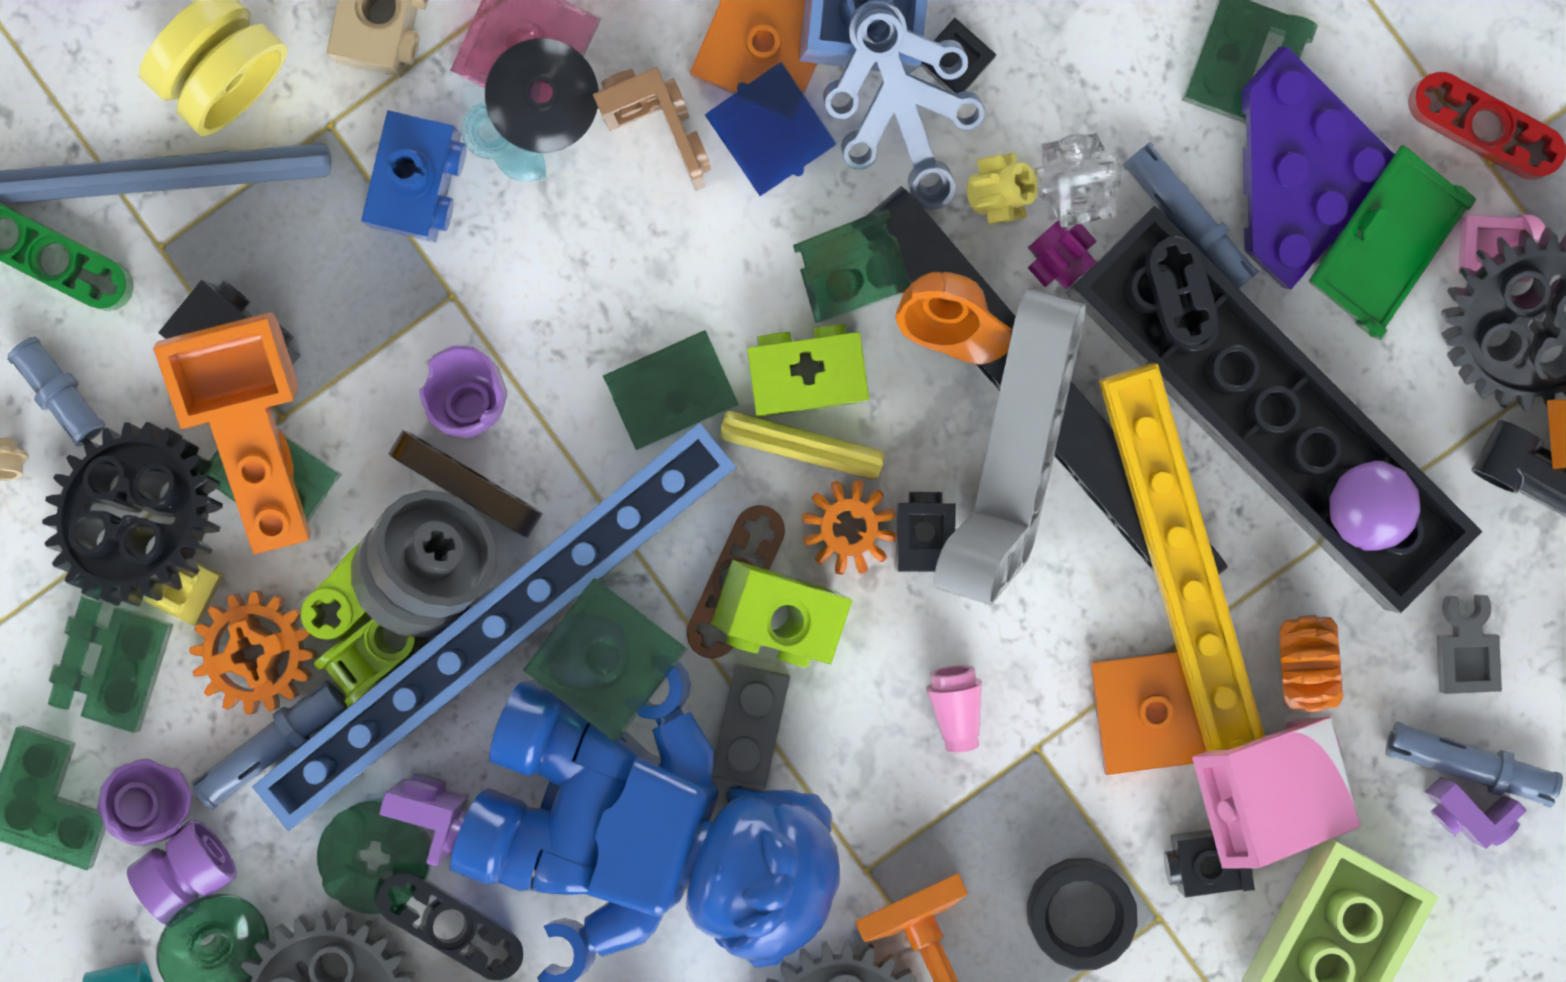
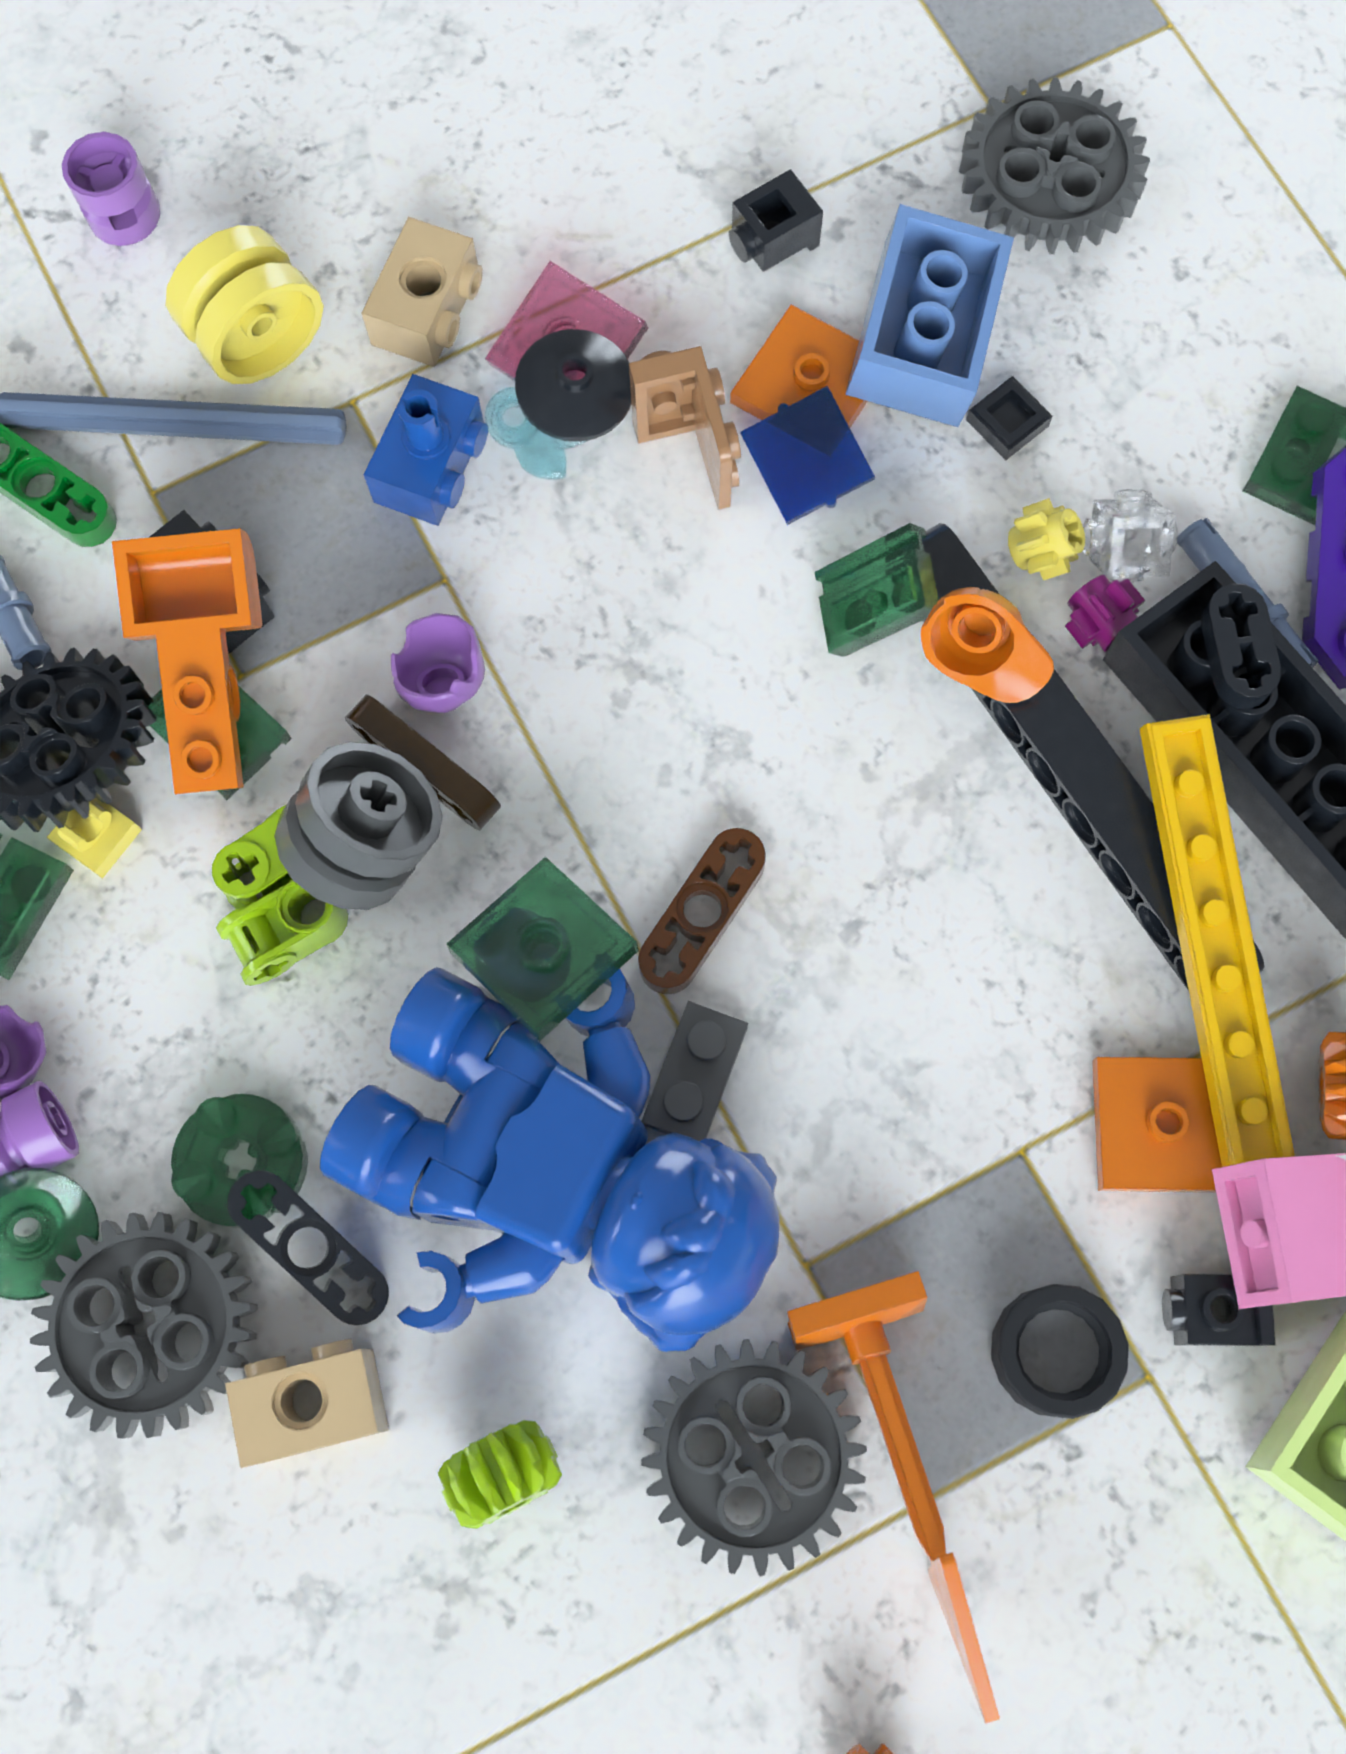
camera: 10 degrees right, 15 degrees down
(247, 631) = (130, 891): orange gear -> none
(288, 730) = (171, 1001): sand blue pin -> none
(429, 806) = (306, 1092): medium lavender bracket -> none
(494, 627) = (415, 916): medium blue brick -> none
(670, 390) = (662, 701): clear green plate -> none
(755, 594) = (786, 944): lime brick -> none
(802, 445) = (796, 776): light yellow axle -> none
(839, 385) = (782, 707): lime brick -> none
(840, 543) = (821, 879): orange gear -> none
(899, 95) = (951, 421): plant -> none
(910, 552) = (939, 864): black brick -> none
(956, 705) = (936, 1083): bright pink cone -> none
(1023, 439) = (1070, 716): light grey beam -> none

